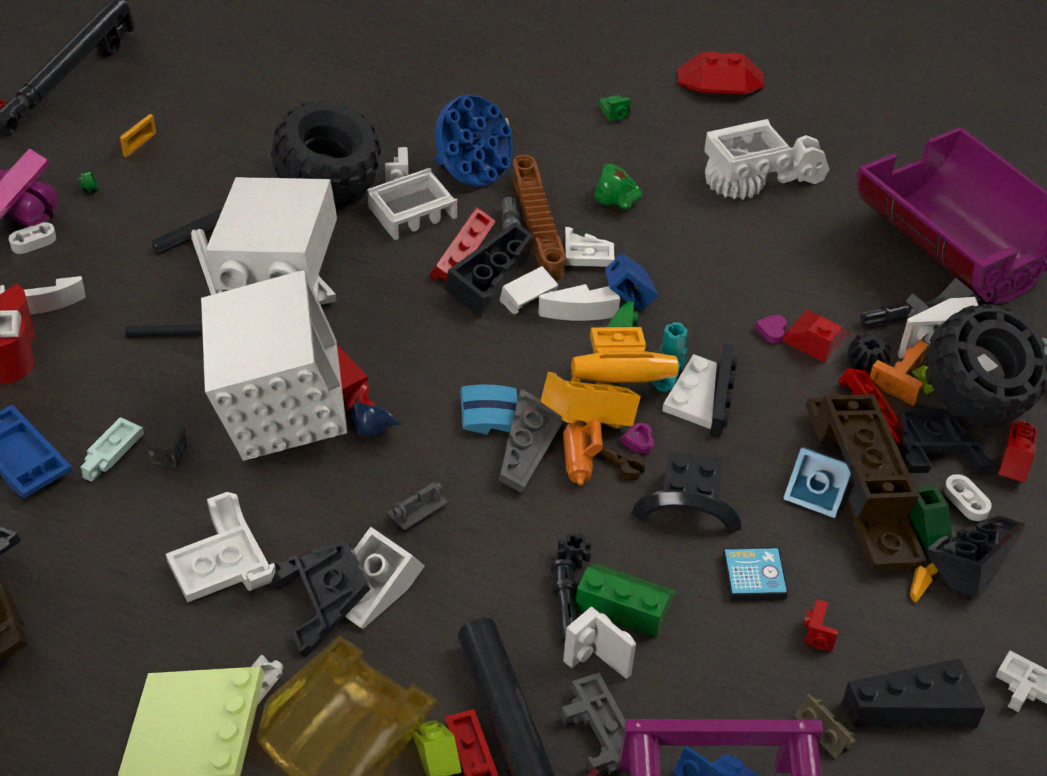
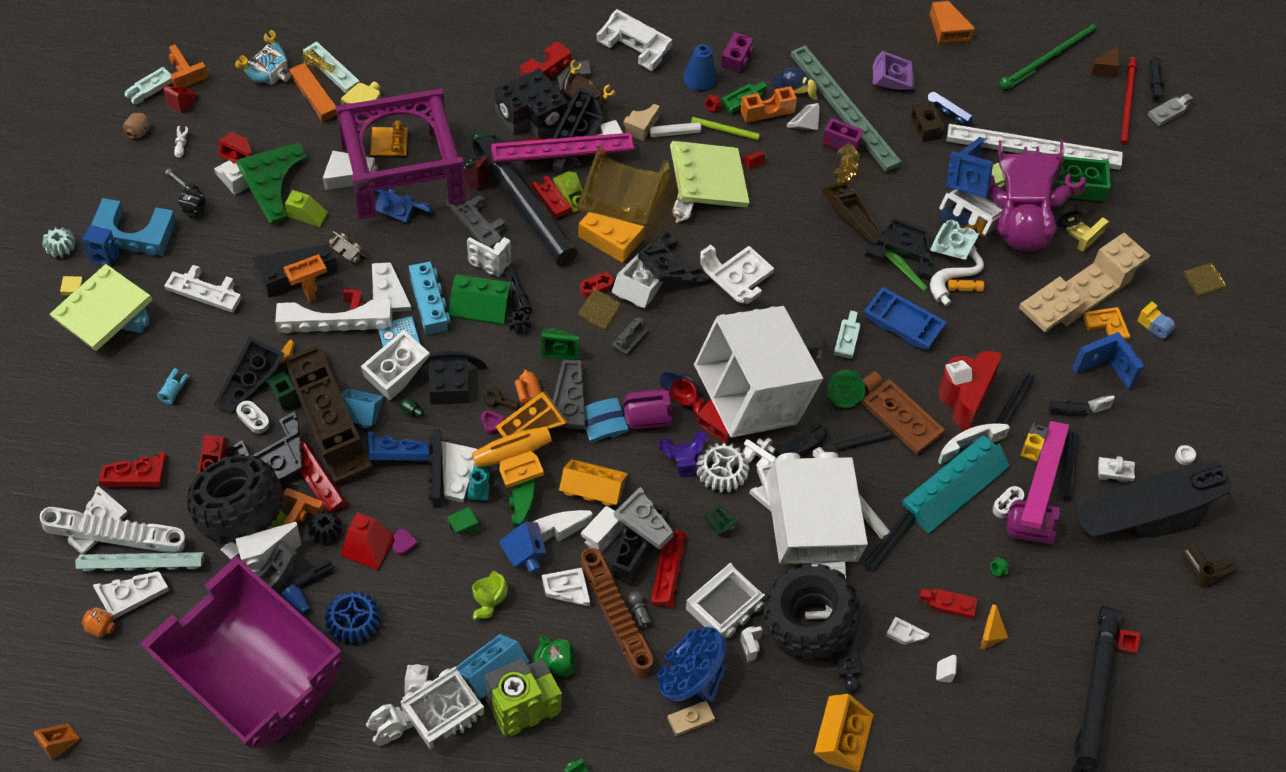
camera: 165 degrees right, 10 degrees up
(92, 261) = (956, 483): none -> teal slope
(98, 334) = (905, 418): none -> dark orange hinge
(99, 756) = (754, 160): none -> red slope
(154, 377) = (845, 388): none -> green tile
(164, 167) = (949, 602): none -> red hinge
(203, 115) = (946, 669): none -> white slope
(229, 154) = (905, 632): none -> white tile
(344, 83) = (844, 732): none -> light orange slope
(360, 325) = (721, 474): none -> white gear
(382, 274) = (720, 519): none -> dark green bracket
(398, 652) = (611, 235): none -> light orange wedge
(400, 343) = (684, 453): none -> dark purple animal
(428, 396) = (648, 409): none -> magenta cylinder
(442, 591) = (596, 282): none -> red beam
(450, 551) = (599, 309): none -> clear yellow piece
(482, 258) = (641, 517): none -> light grey wing
(524, 341) = (593, 482): none -> light orange slope
(526, 498) = (559, 345): none -> green slope
(665, 147) = (521, 695): none -> lime piece
(678, 251) = (489, 593): none -> lime hair
(690, 198) = (489, 658): none -> dark azure slope
(700, 325) = (462, 521): none -> green panel
(704, 613) = (428, 298): none -> medium azure brick
(747, 471) = (411, 408): none -> dark green cylinder
(766, 648) = (387, 286): none -> white wing
(770, 505) = (395, 364): none -> white slope
(771, 202) = (415, 677): none -> white bracket
(774, 420) = (390, 449): none -> blue wing
(839, 263) = (367, 619): none -> blue gear
(895, 638) = (305, 272): none -> orange bracket
(902, 289) = (296, 599): none -> blue cone
(910, 618) = (372, 315): none -> white arch

